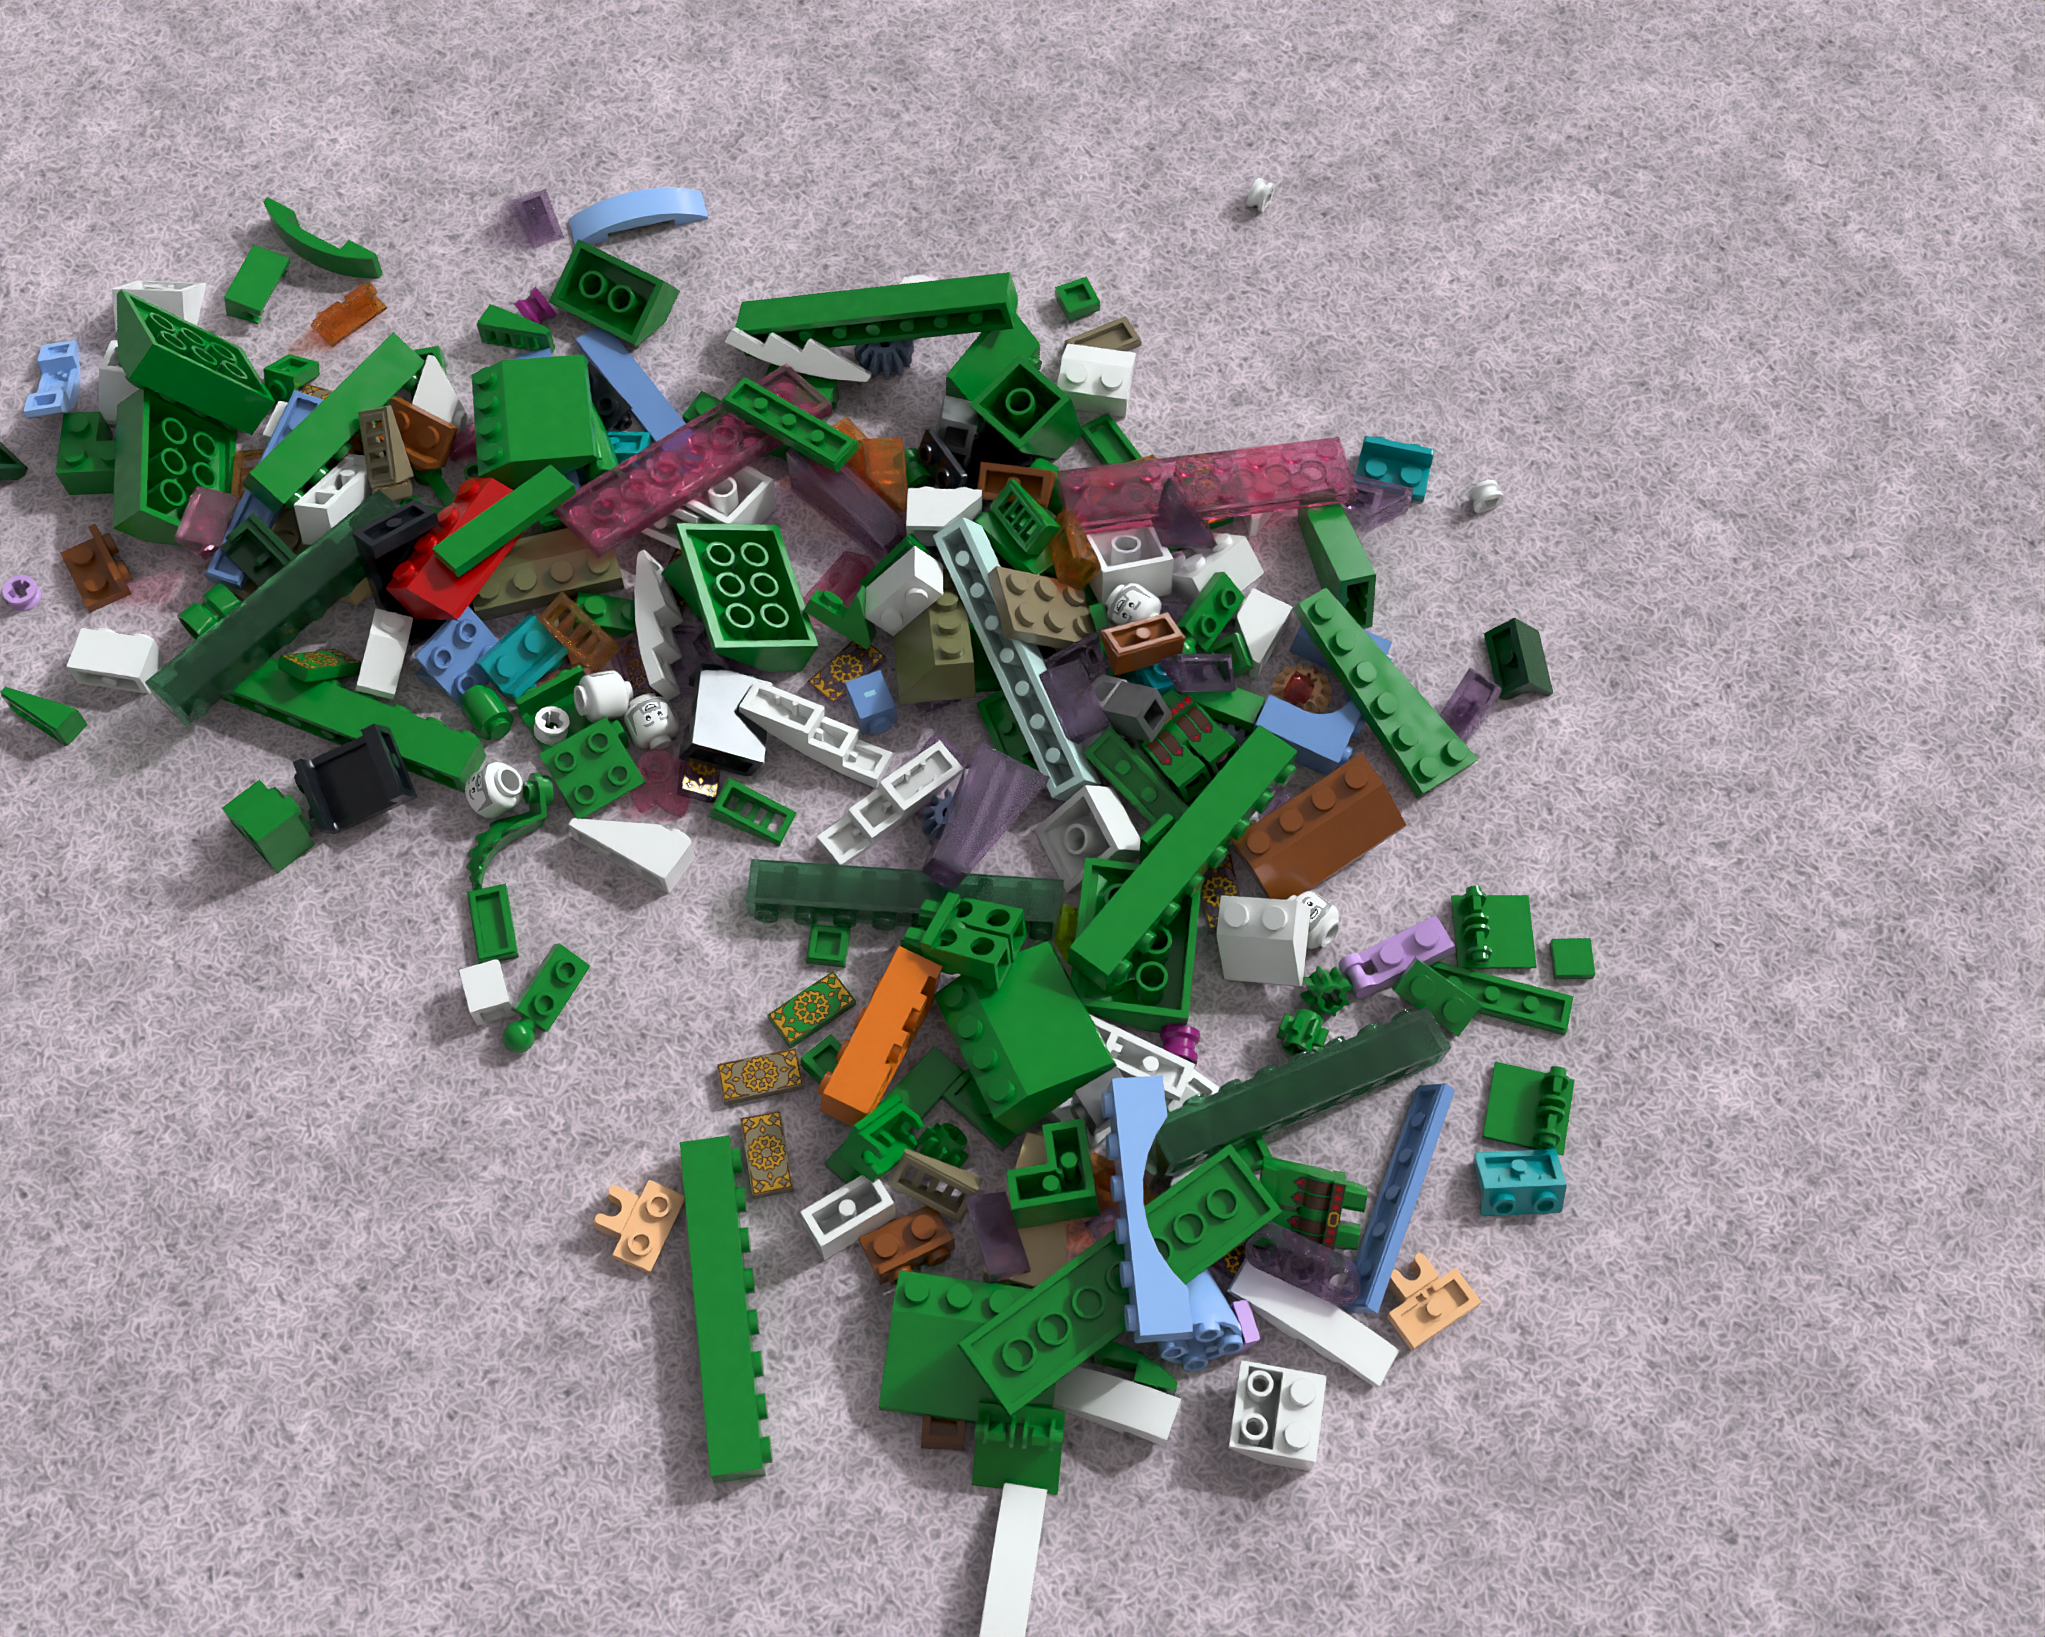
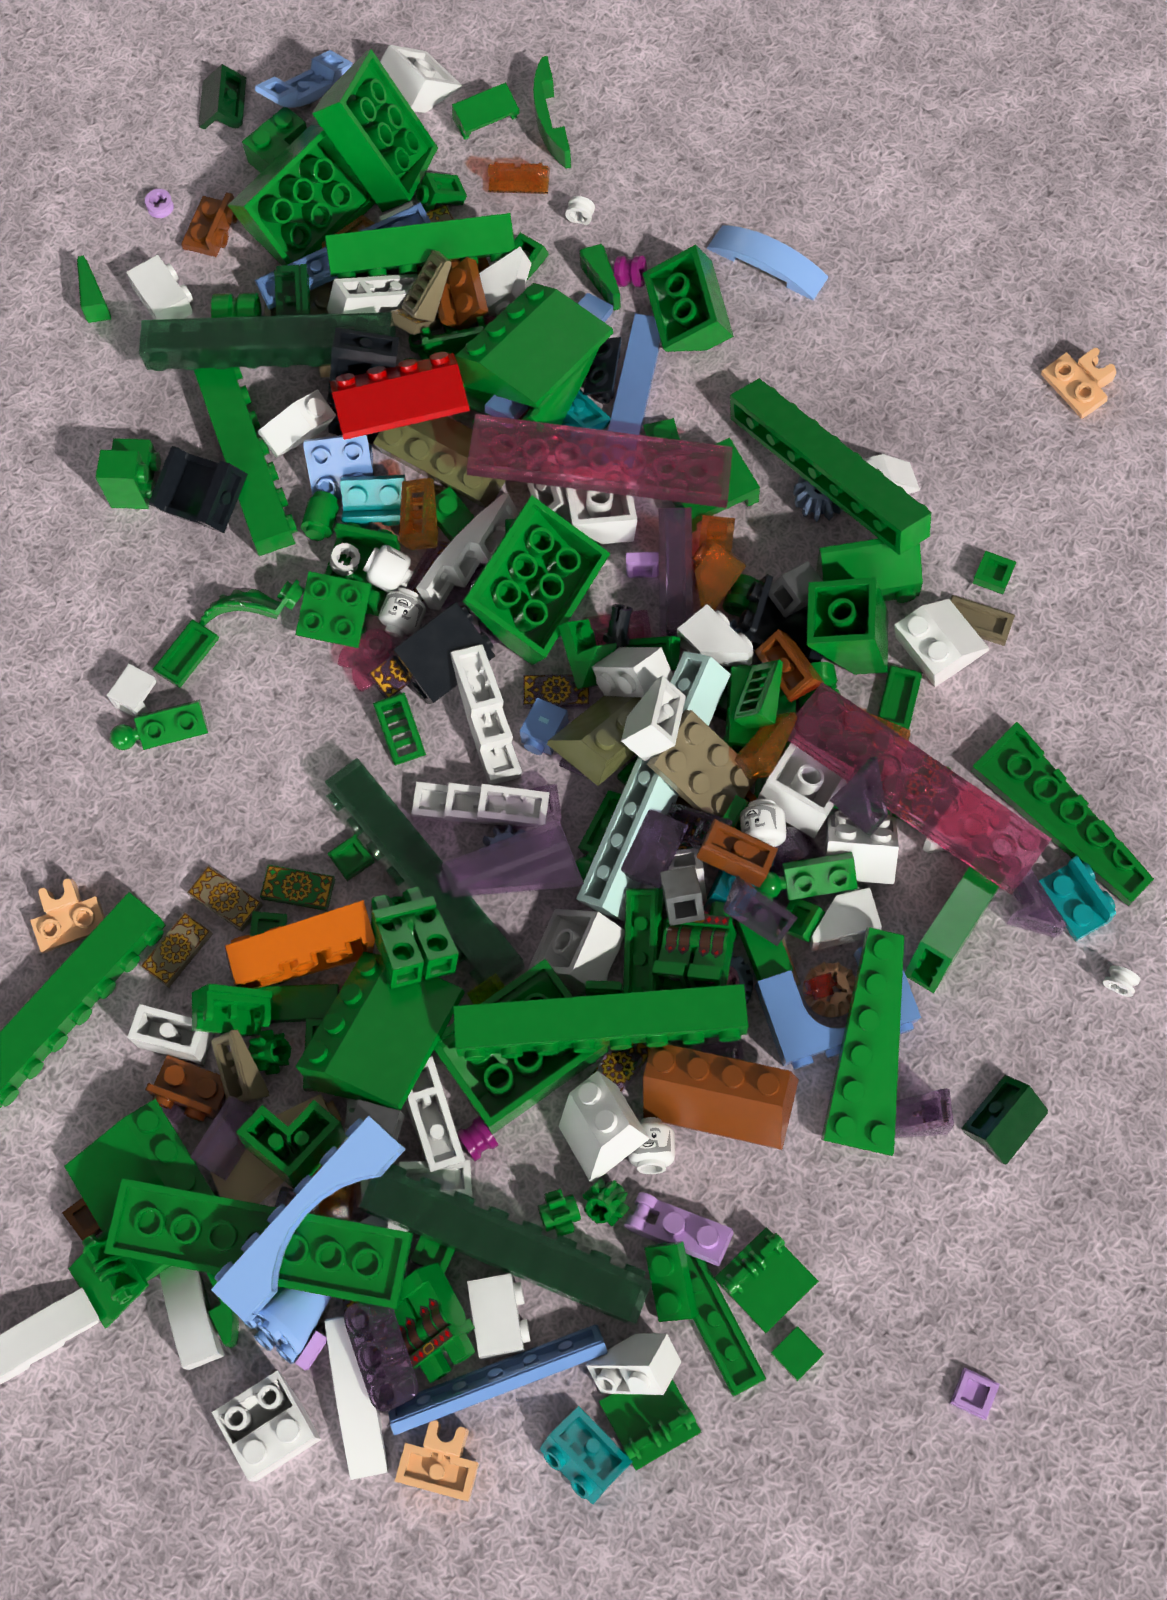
camera: 55 degrees right, 5 degrees up
(206, 521) = (286, 245): clear pink slope -> none
(319, 665) = (254, 396): green tile -> none
(434, 297) = (580, 210): none -> white bush
(444, 485) = (452, 341): none -> green hinge
(494, 790) = (268, 569): white head -> none
(504, 520) = (432, 399): green tile -> none
(536, 217) = (702, 206): clear purple slope -> none
(639, 847) = (311, 691): white slope -> none
(790, 424) = (679, 492): green tile -> none
(806, 517) = (642, 564): none -> lavender tile
(812, 359) = (756, 458): white slope -> none
(848, 573) = (618, 626): none -> black pin
(977, 600) = (654, 720): none -> white slope
(981, 116) = (1081, 381): none -> light nougat plate
(1258, 420) = (1039, 792): none -> green wing
(1343, 1147) = (497, 1316): none -> white brick
(1483, 1079) = (636, 1365): none -> white slope
(1711, 862) = (974, 1393): none -> lavender tile

